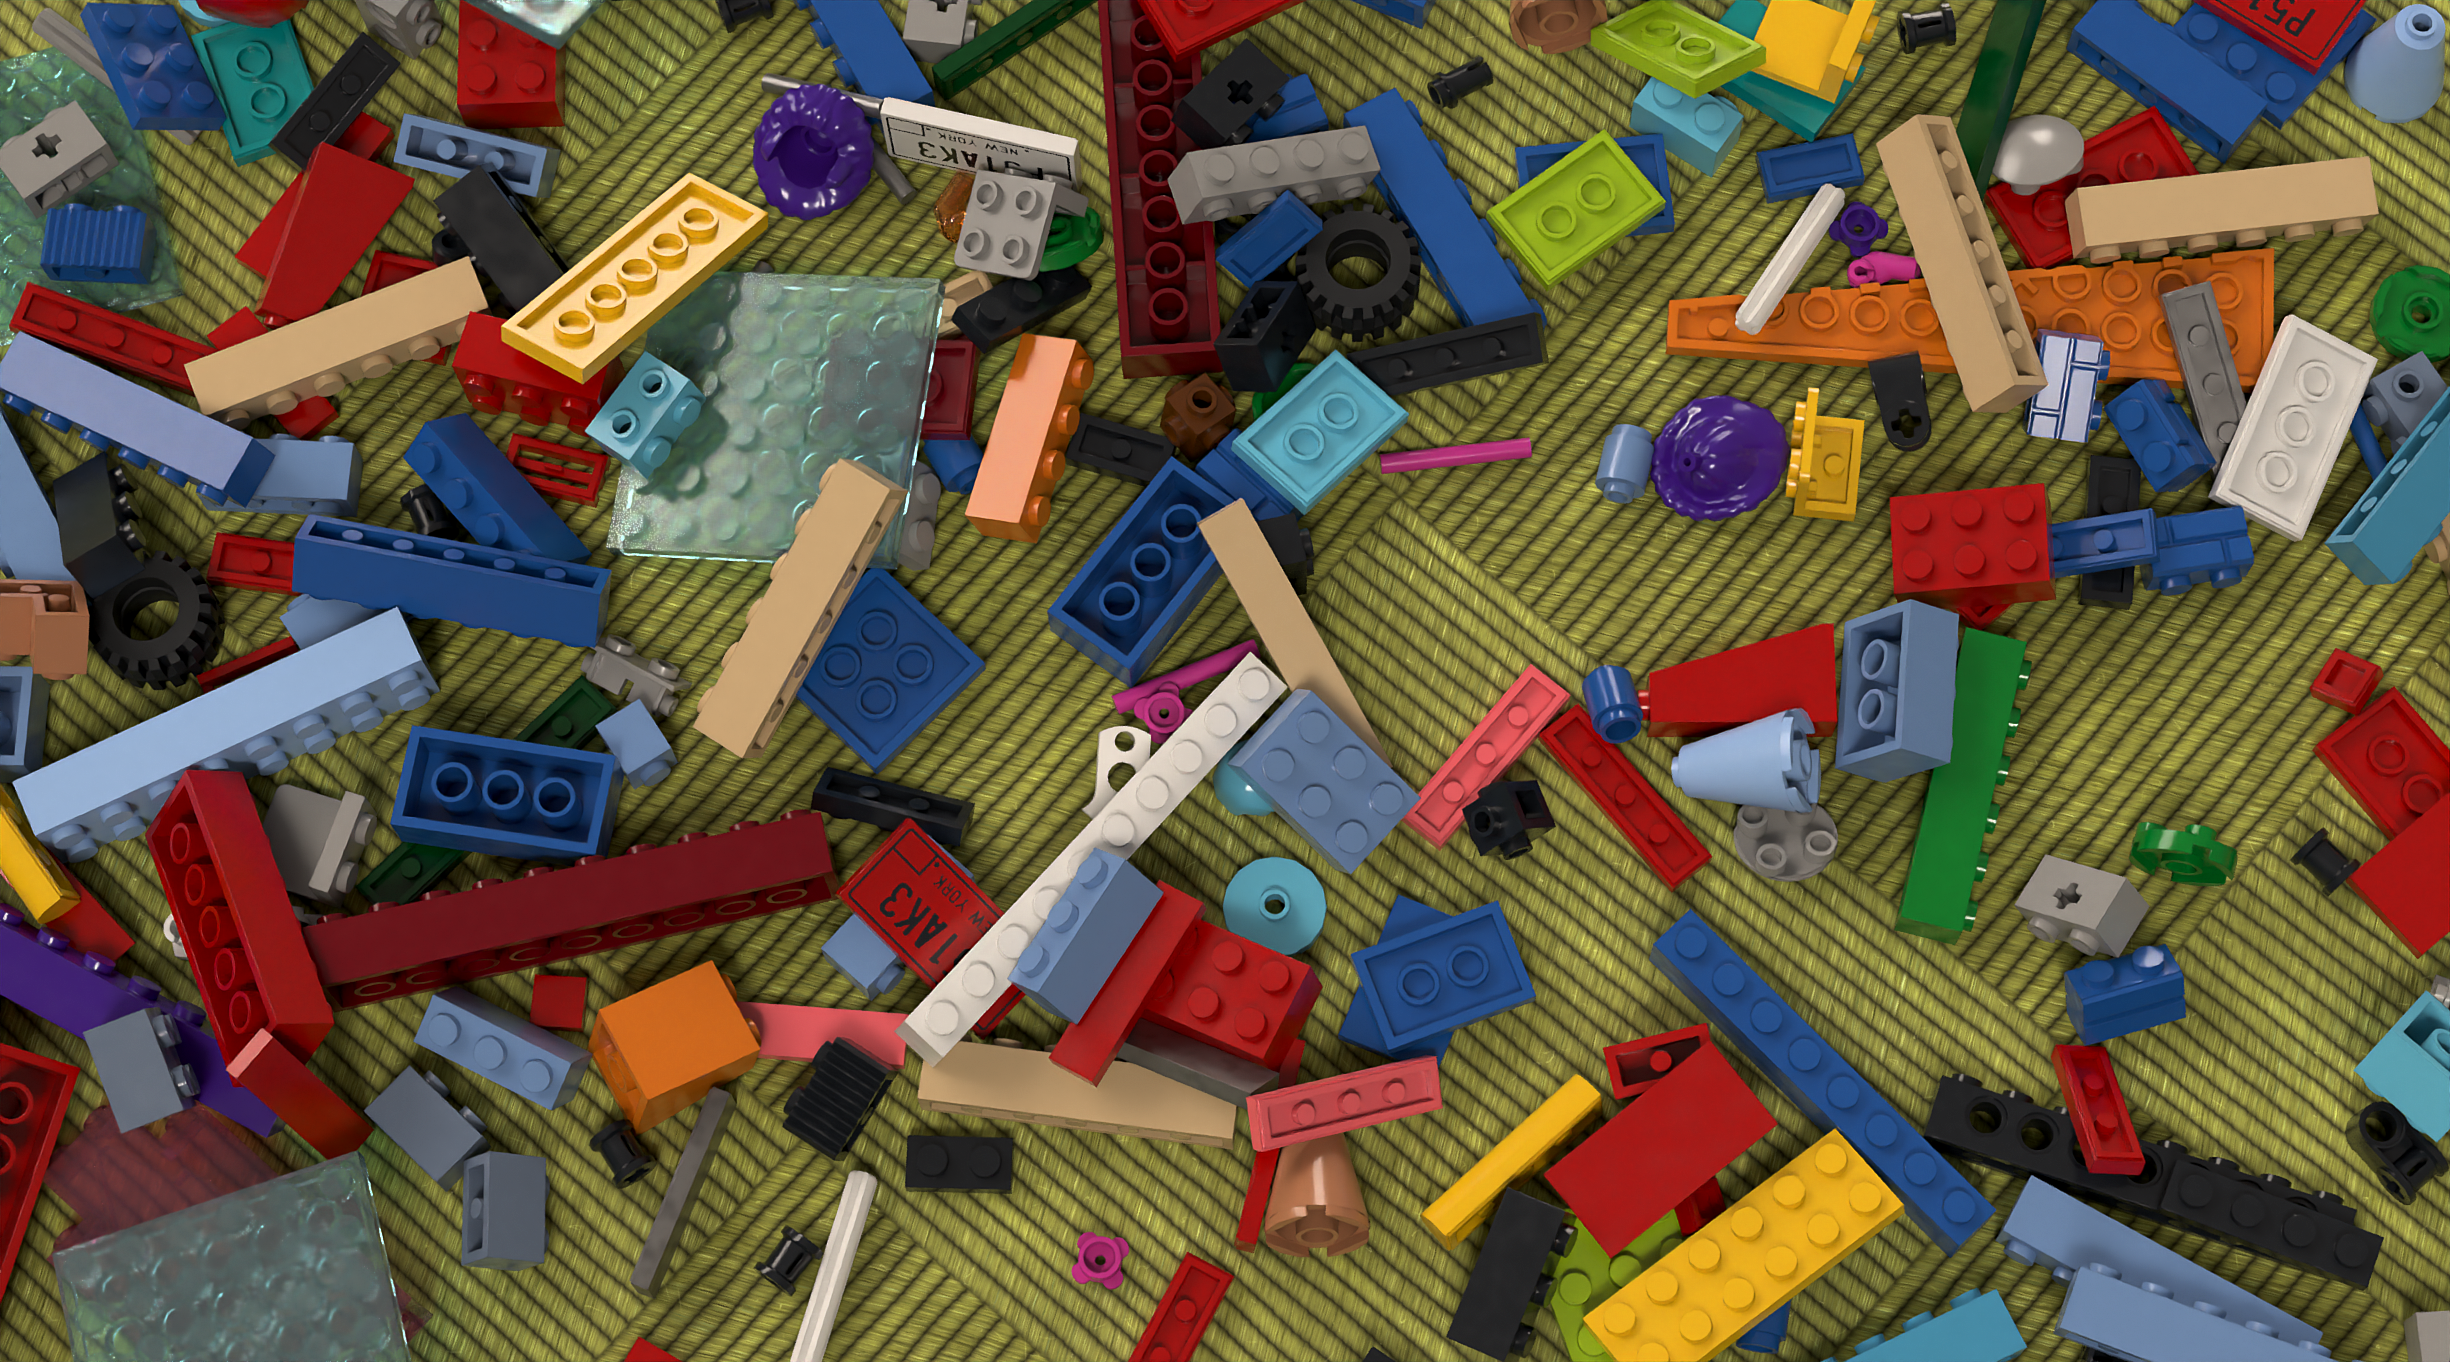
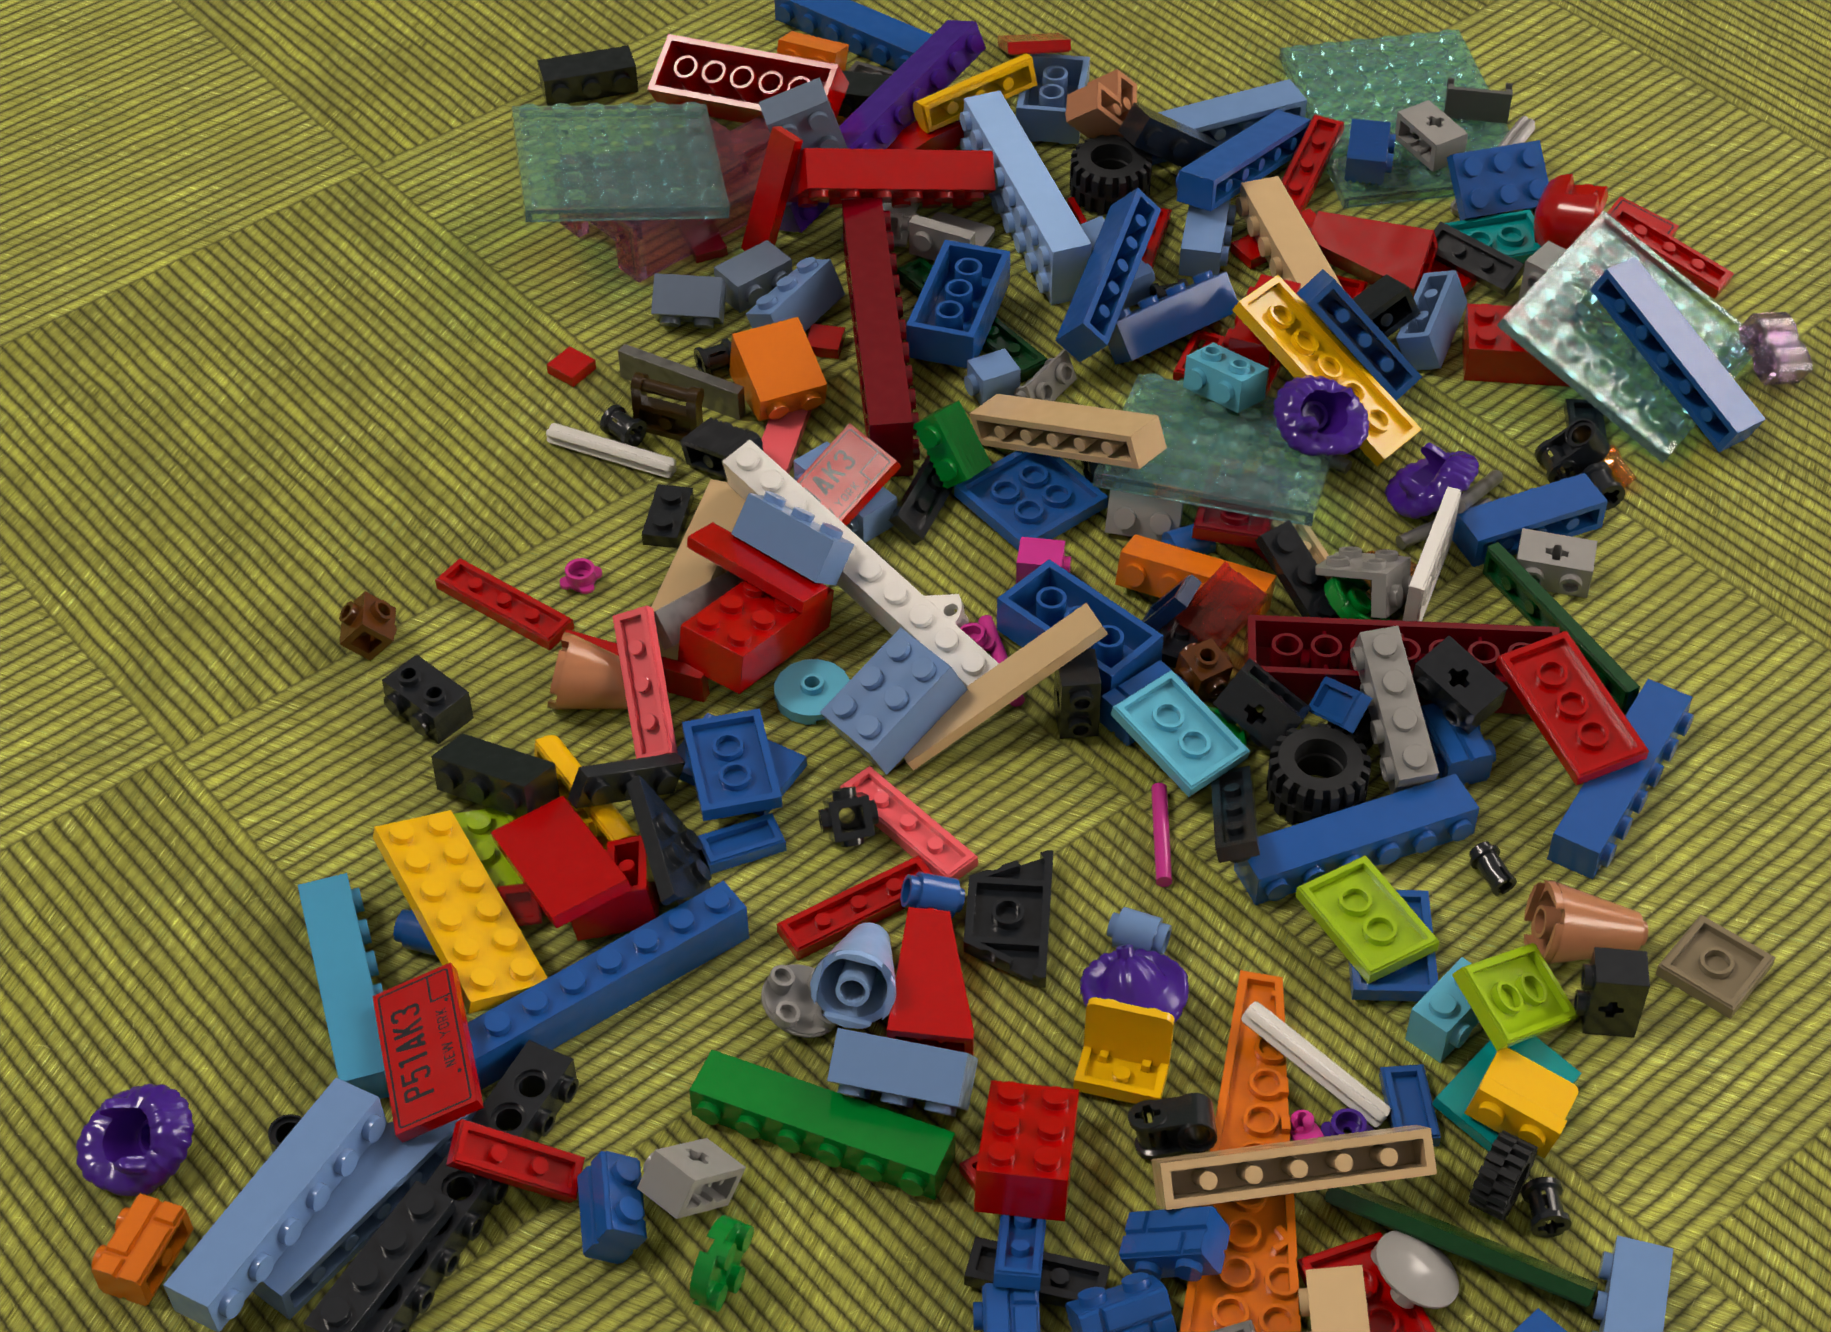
camera: 95 degrees right, 25 degrees down
(574, 232) = (1359, 334): none -> blue brick
(747, 276) = (1320, 416): none -> dark purple piece
(765, 1191) = (665, 417): none -> dark brown plate
(828, 766) = (952, 444): none -> green brick
(1015, 637) = (1036, 551): none -> dark pink brick
(1097, 461) = (1172, 603): none -> dark blue tile
(1102, 393) = (1222, 606): none -> clear red plate
(1505, 1097) = (607, 781): none -> black plate
(1548, 958) = (741, 843): none -> blue tile
(1614, 1017) = (669, 846): none -> black wing
(1618, 612) = (1011, 917): none -> black wing
(1911, 63) = (1502, 1175): none -> black tyre
(1983, 1239) = (427, 1052): none -> red tile

